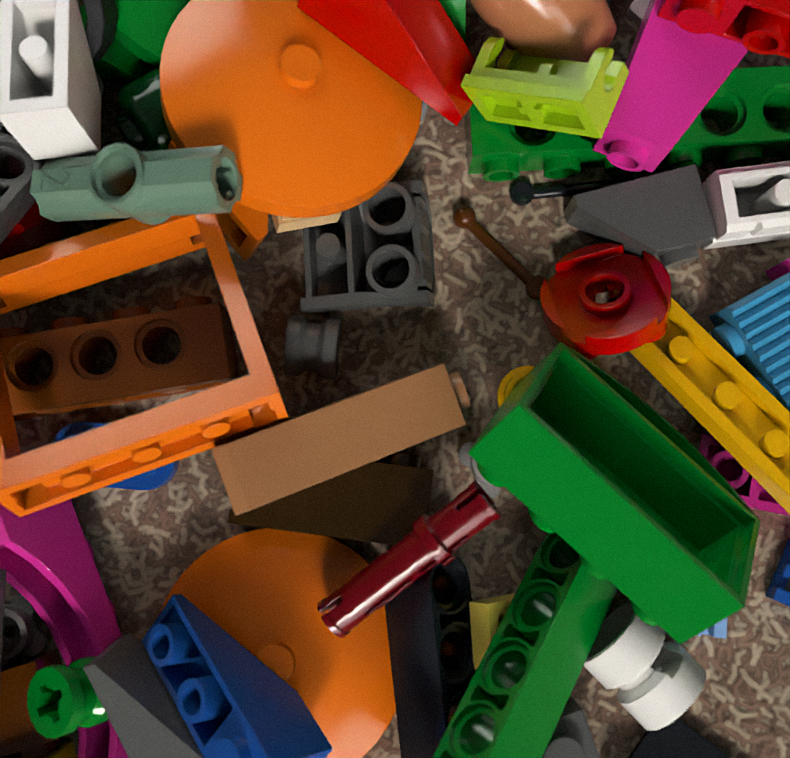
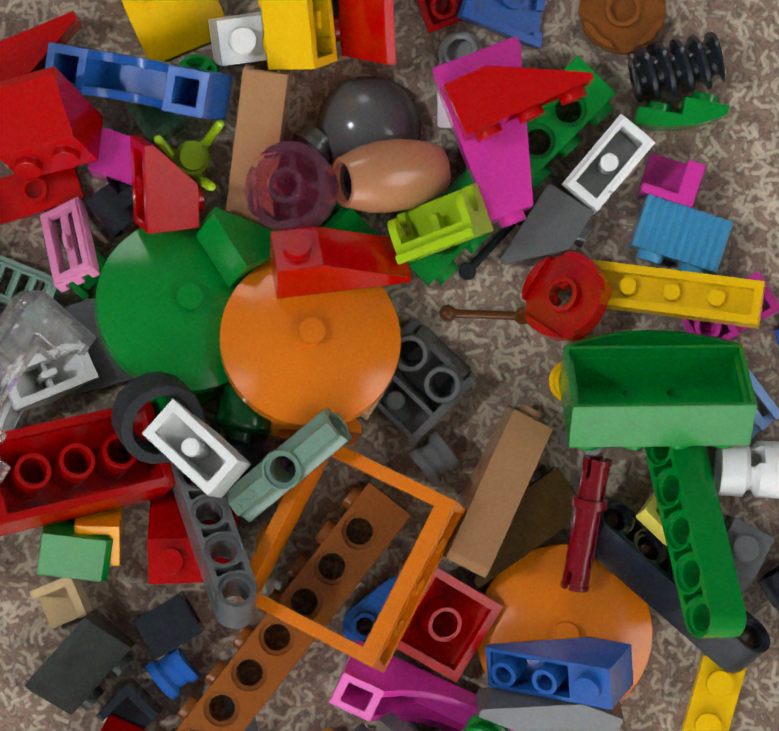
camera: 45 degrees left, 5 degrees up
(159, 528) = (449, 624): none -> red slope

